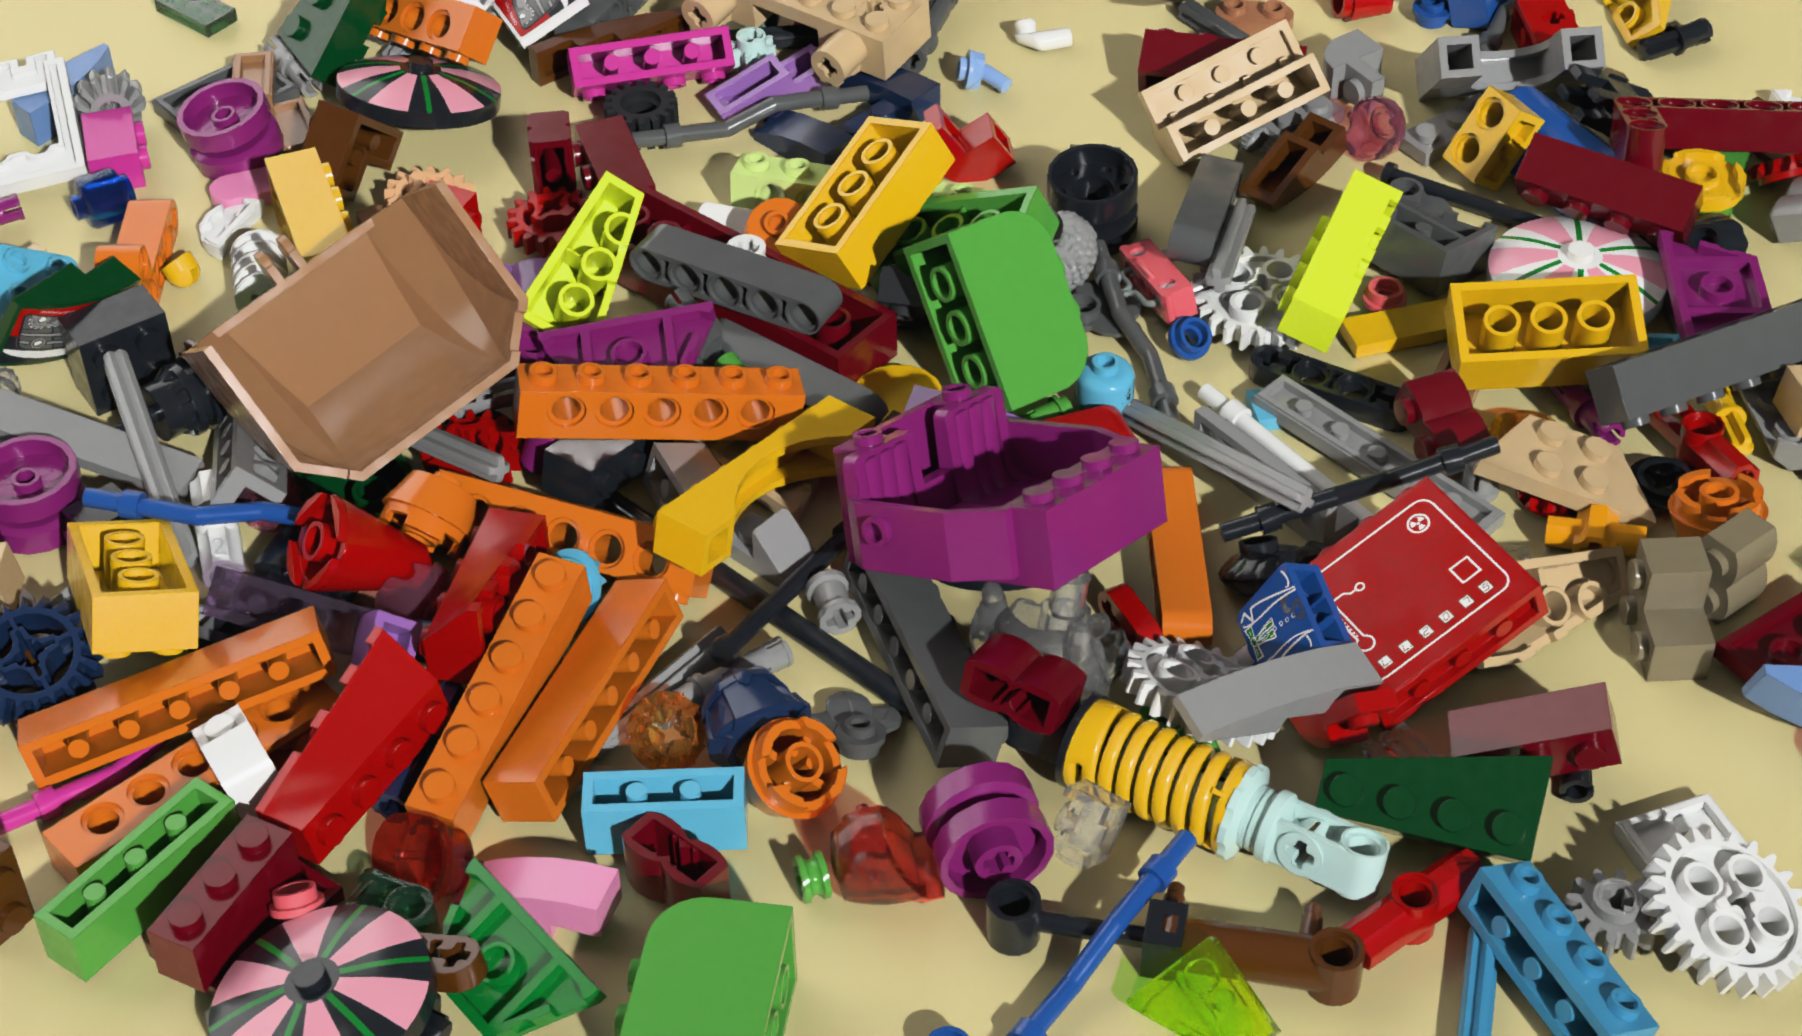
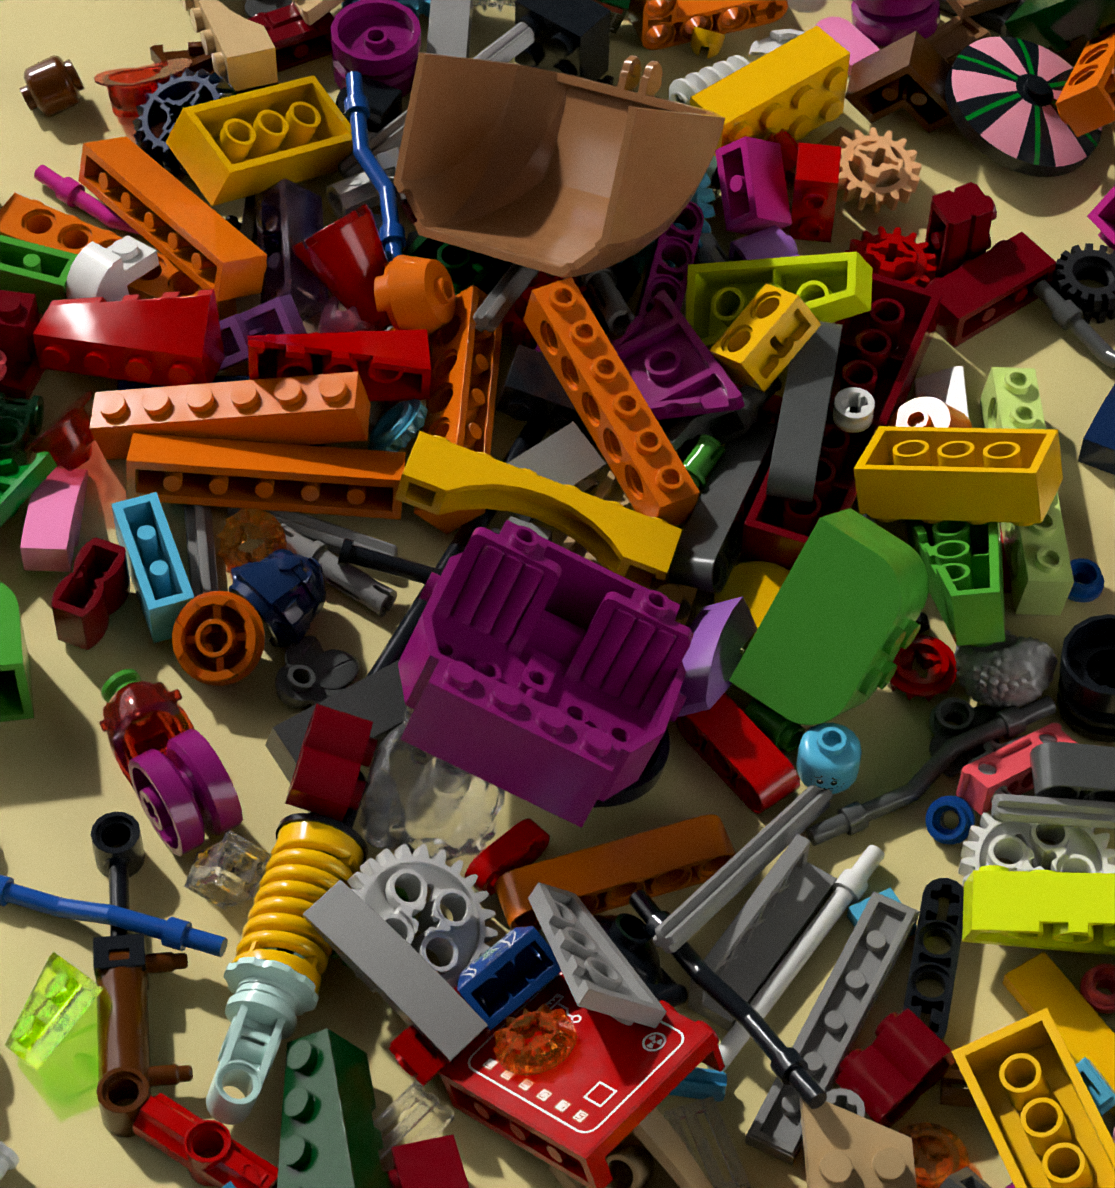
camera: 70 degrees right, 10 degrees up
(659, 263) = (765, 337): none -> yellow brick
(1324, 544) = (591, 961): none -> light grey wing
(1389, 629) = (545, 1050): none -> clear orange gear

